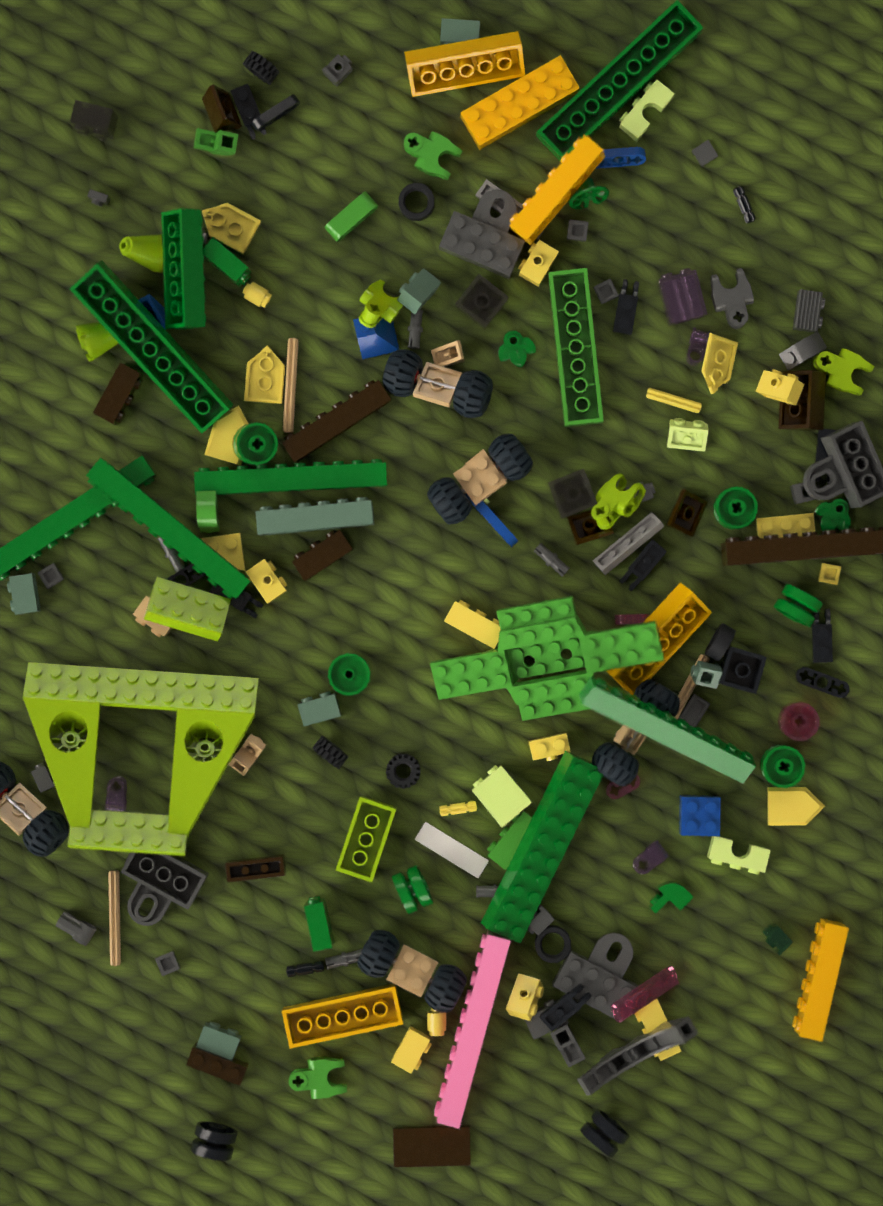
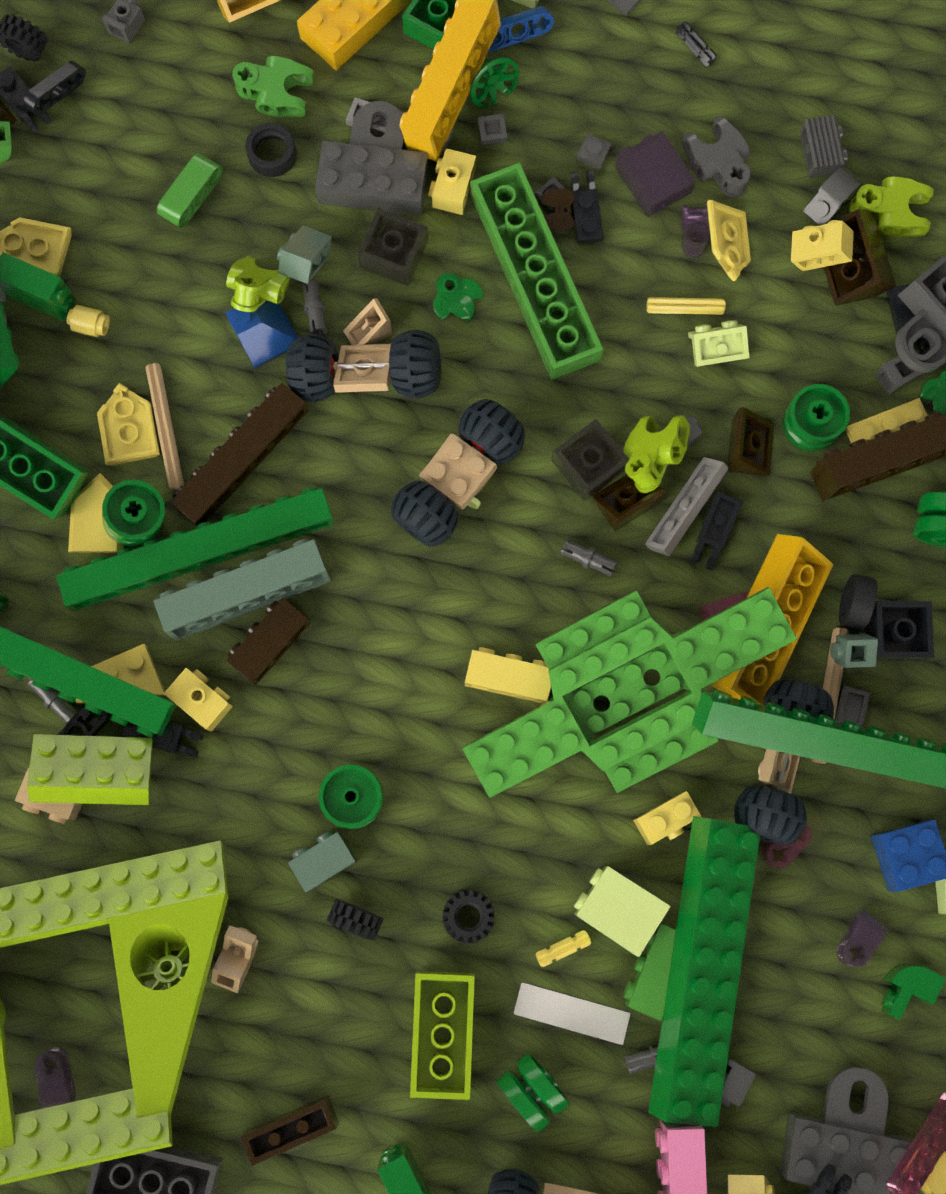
camera: 10 degrees left, 10 degrees down
(207, 511) = (88, 626): bright green brick -> none
(495, 522) = (496, 529): blue beam -> none
(553, 958) = (784, 1122): black tyre -> none
(608, 301) = (560, 200): none -> dark brown piece
(645, 266) = (593, 151): none -> dark grey plate

